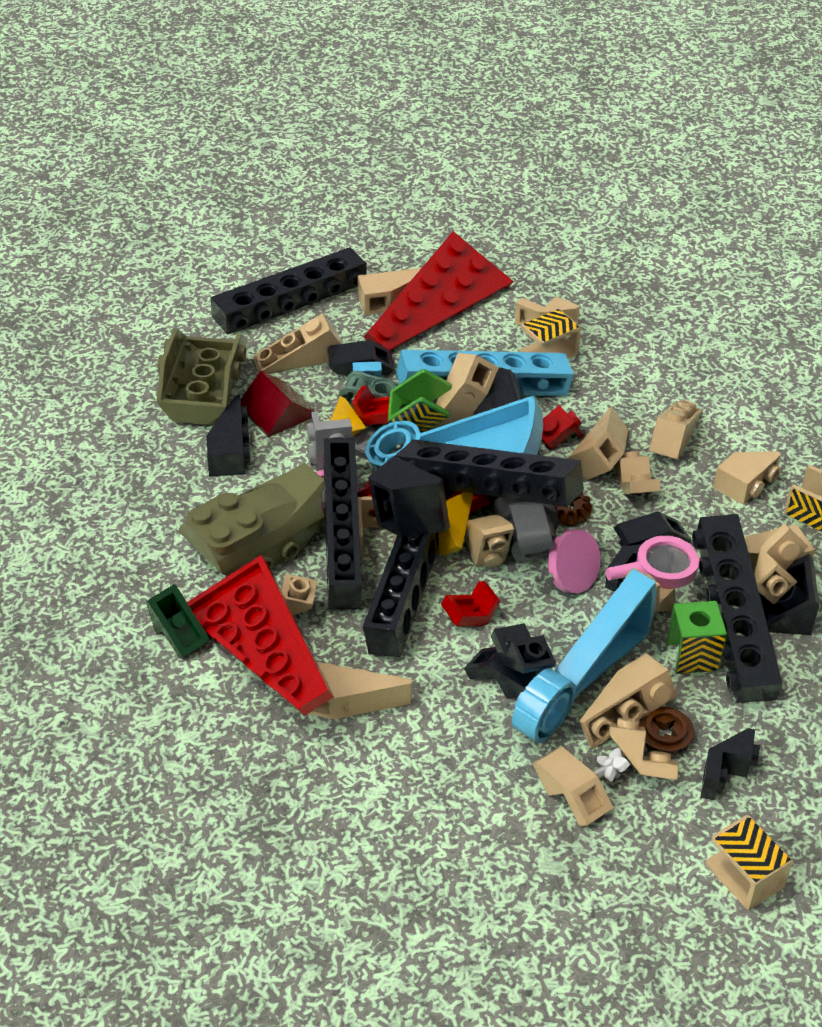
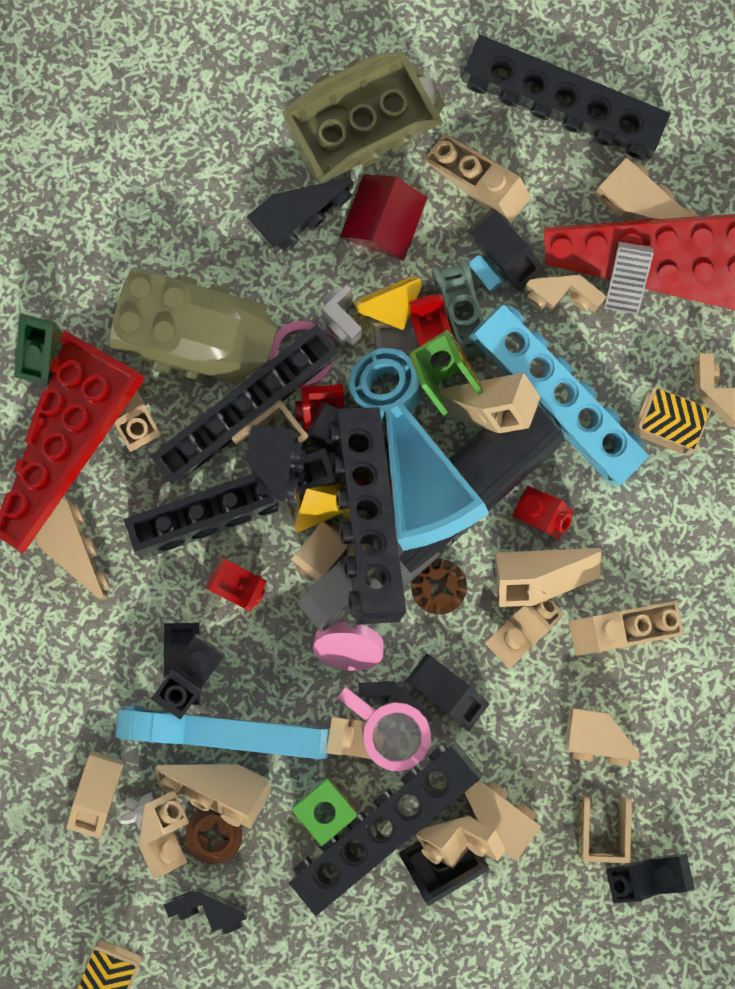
camera: 50 degrees right, 40 degrees up
(419, 338) = (549, 291): none -> tan slope
(435, 312) = (628, 277): none -> tile

